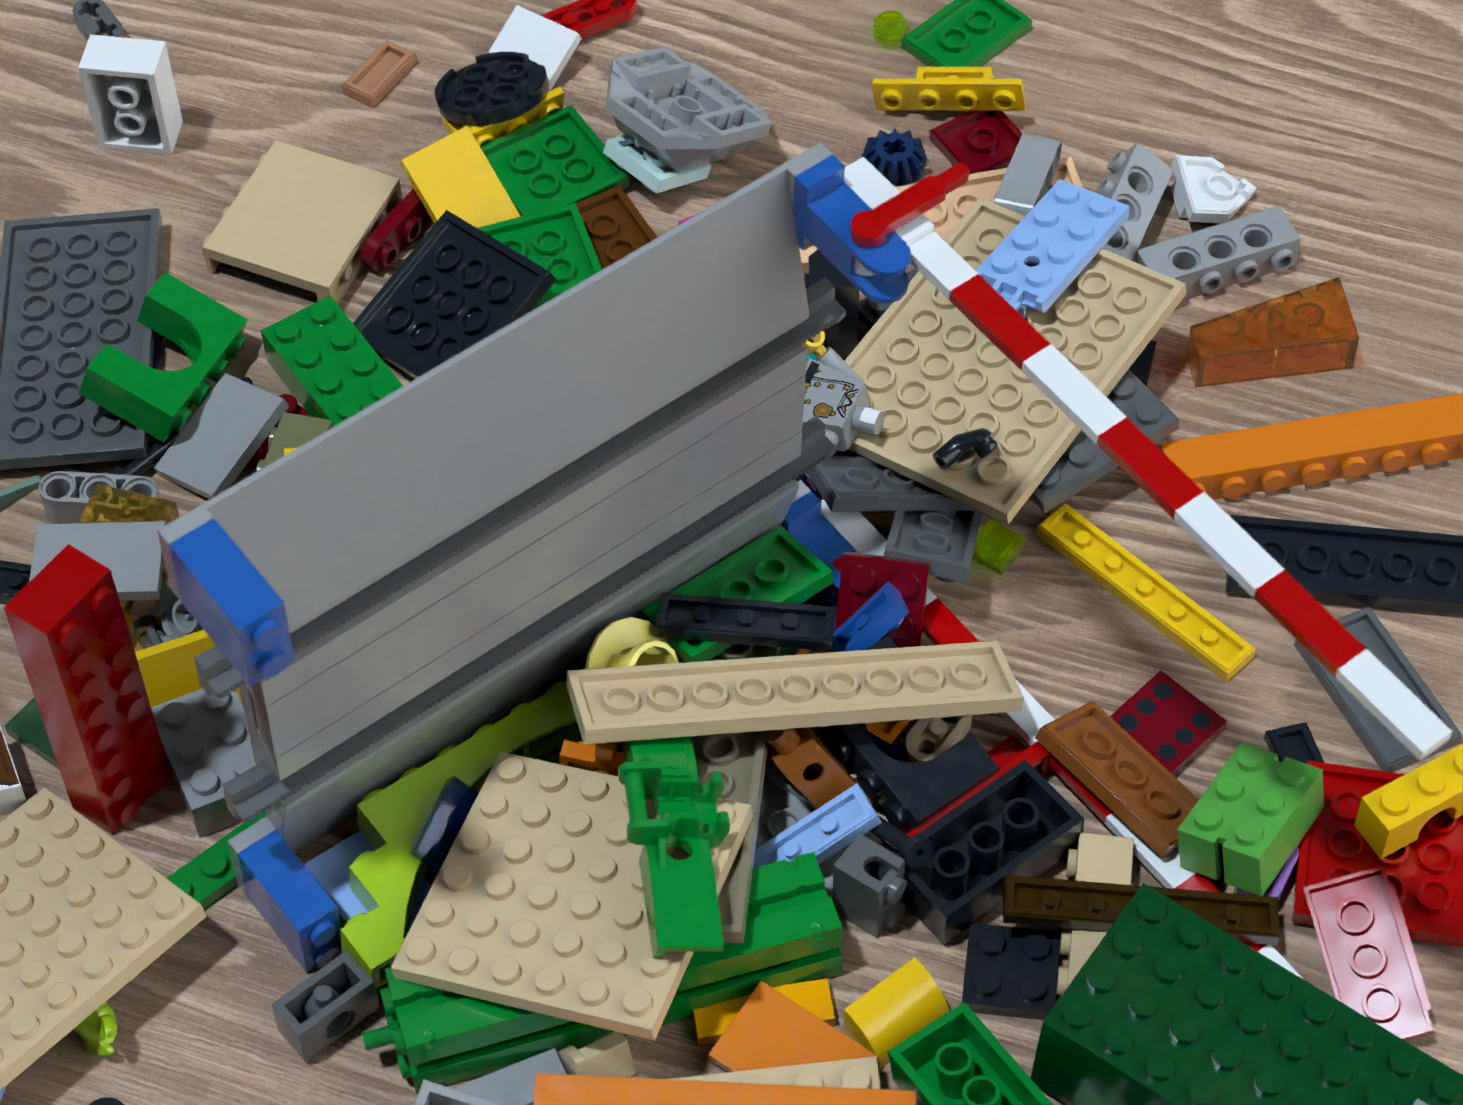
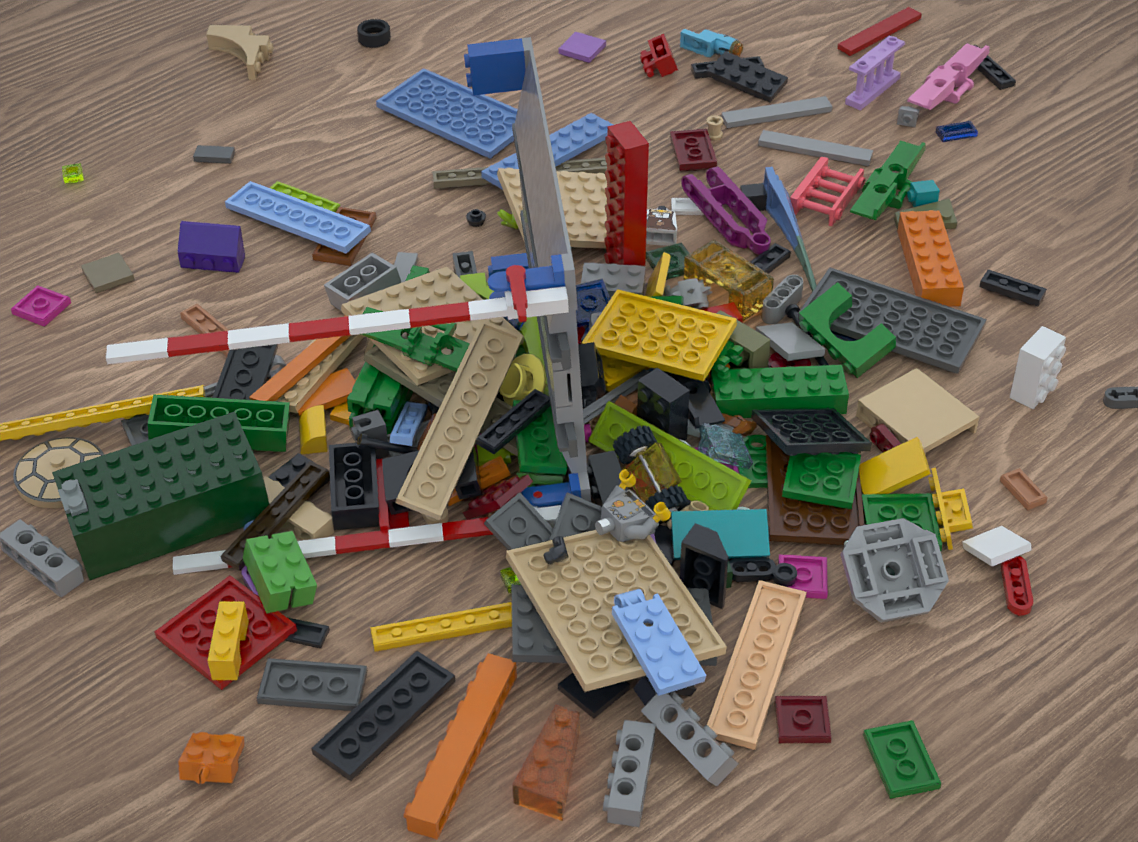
camera: 120 degrees right, 10 degrees down
(125, 548) = (724, 261): light grey tile -> none
(491, 89) = (967, 509): black tile -> none
(871, 621) = (488, 477): blue plate -> none
(890, 27) = (925, 718): clear neon green plate -> none
(896, 156) = (810, 664): dark blue gear -> none
(949, 90) = (848, 714): yellow bracket -> none
(1029, 173) = (742, 700): light grey beam -> none
(1120, 774) = (349, 549): dark orange tile -> none
(1169, 722) = (366, 591): dark red tile -> none
(1206, 191) = (686, 800): white plate -> none
(1370, 951) = (181, 586): piece -> none

